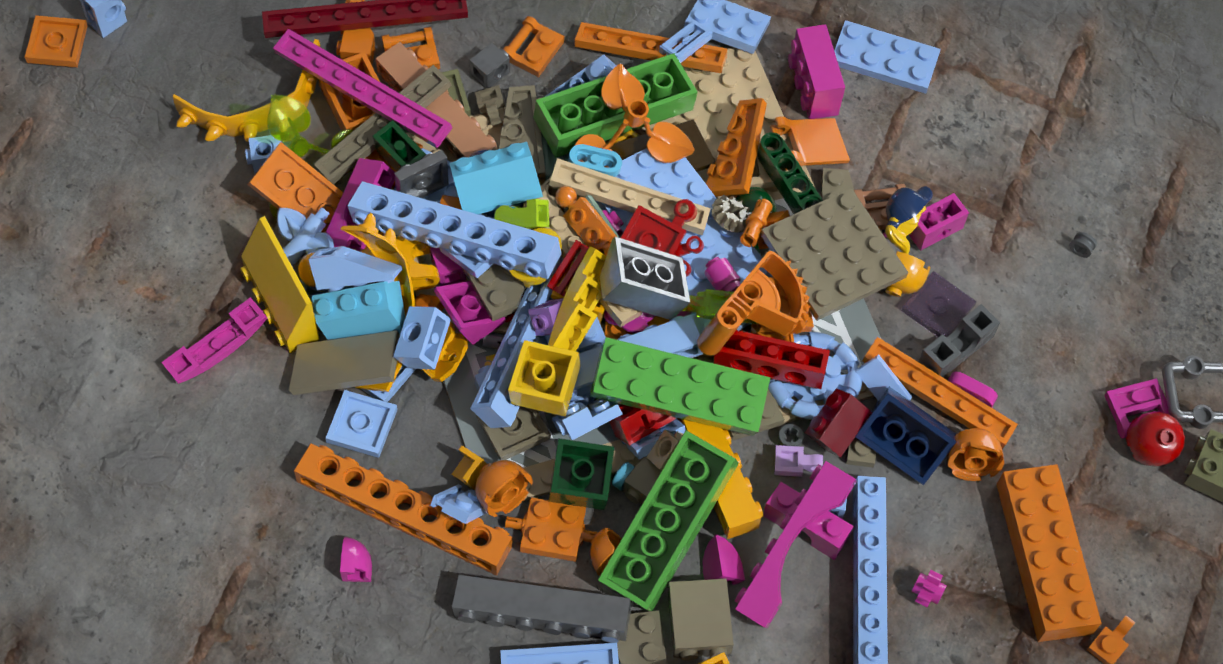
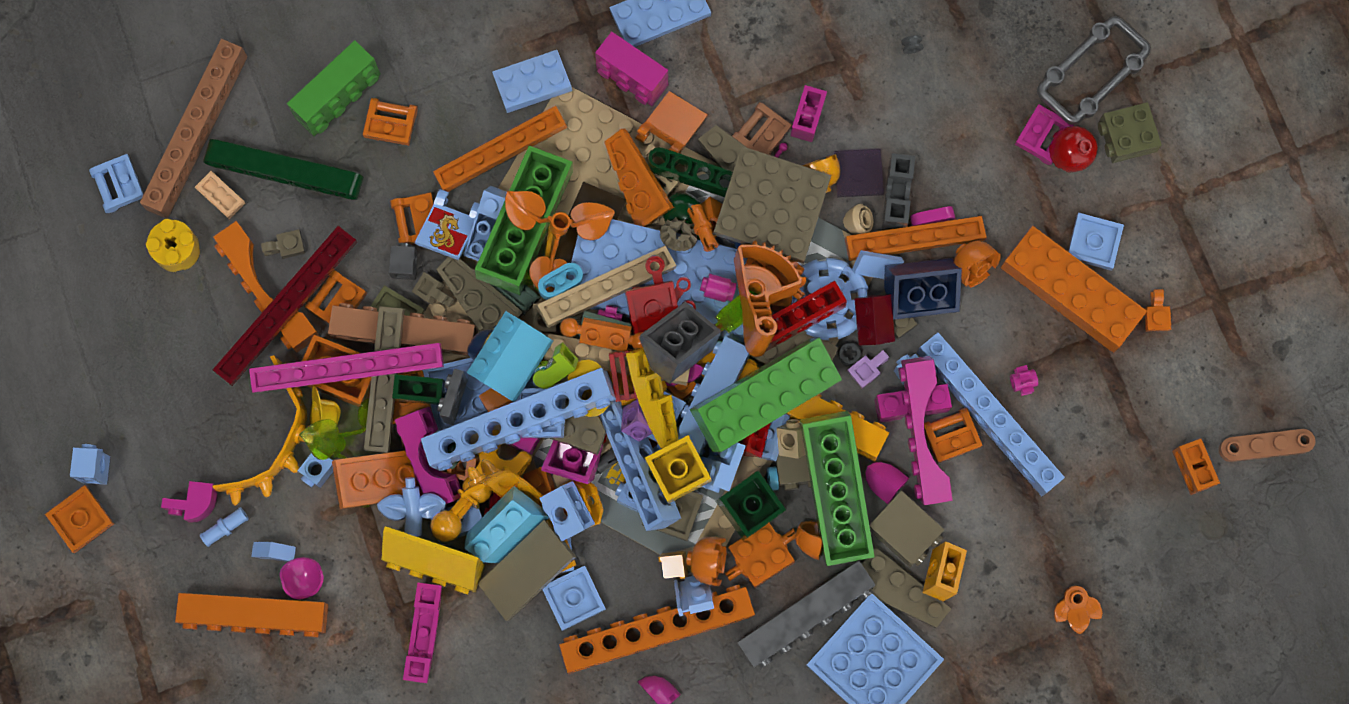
camera: 40 degrees left, 15 degrees up
(104, 214) = (251, 613): none -> orange brick
(149, 103) = (199, 502): none -> dark pink brick
(152, 136) = (224, 527): none -> light blue pin
(166, 219) = (301, 578): none -> dark pink helmet
(167, 180) = (273, 550): none -> light blue piece
(319, 117) = (323, 408): none -> yellow piece
(345, 267) = (471, 513): light blue slope -> none
(546, 66) = (445, 228): none -> flag
(689, 43) = (523, 144): light blue tile -> none
(814, 586) = (955, 442): none -> orange plate
(903, 336) = (858, 219): none -> tan cone
(904, 214) = (785, 127): dark blue hair -> none
(1107, 532) = (1095, 241): none -> light blue plate

